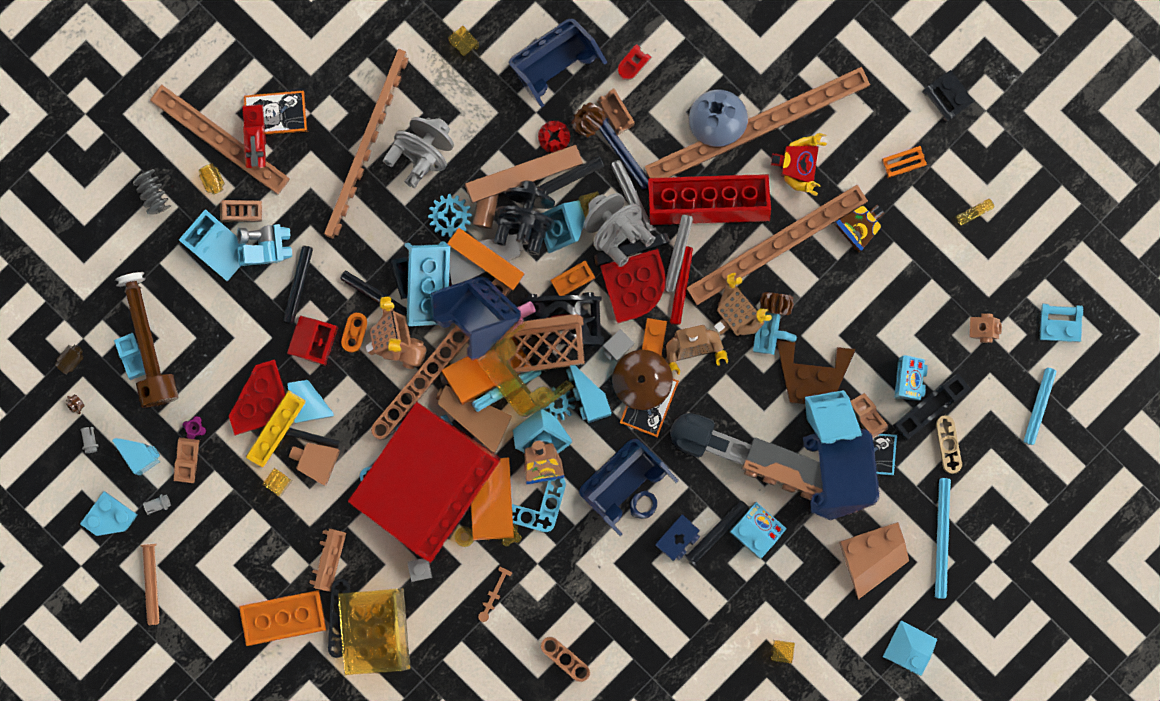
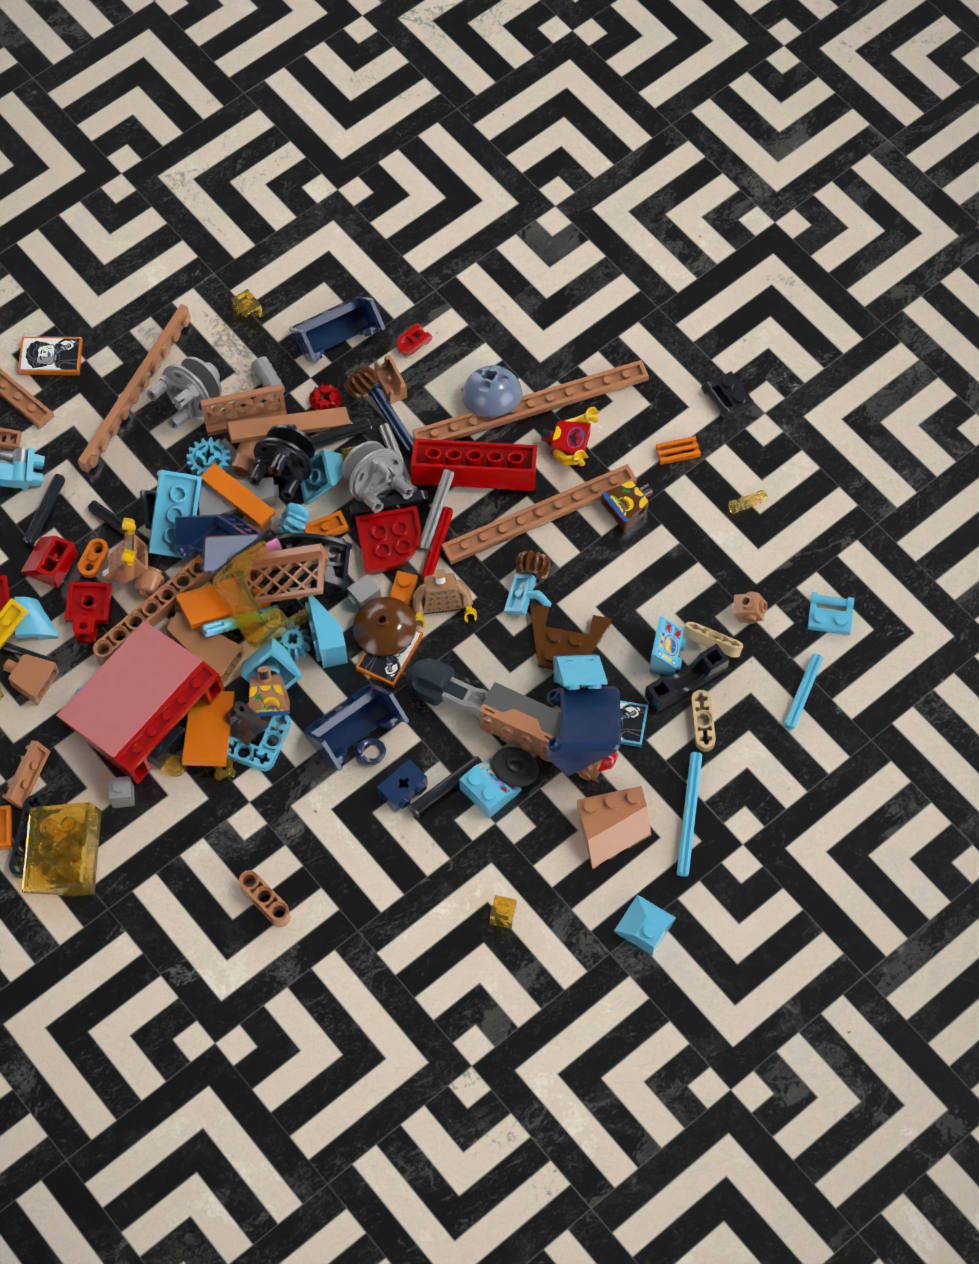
camera: 10 degrees right, 20 degrees down
(254, 135) = (24, 368): red plate -> none
(358, 394) = (86, 618): none -> red plate
(479, 164) = (217, 420): none -> nougat fence
(483, 616) = (183, 849): nougat piece -> none
(495, 119) = (266, 373): none -> light grey axle
(526, 491) = (246, 722): none -> black leg
(542, 278) = (293, 519): none -> medium azure gear
(739, 311) = (492, 568): medium nougat torso -> none
(771, 517) = (517, 778): none -> black wheel
(867, 415) = (619, 678): nougat slope -> none
(940, 354) = (710, 637): none -> tan beam

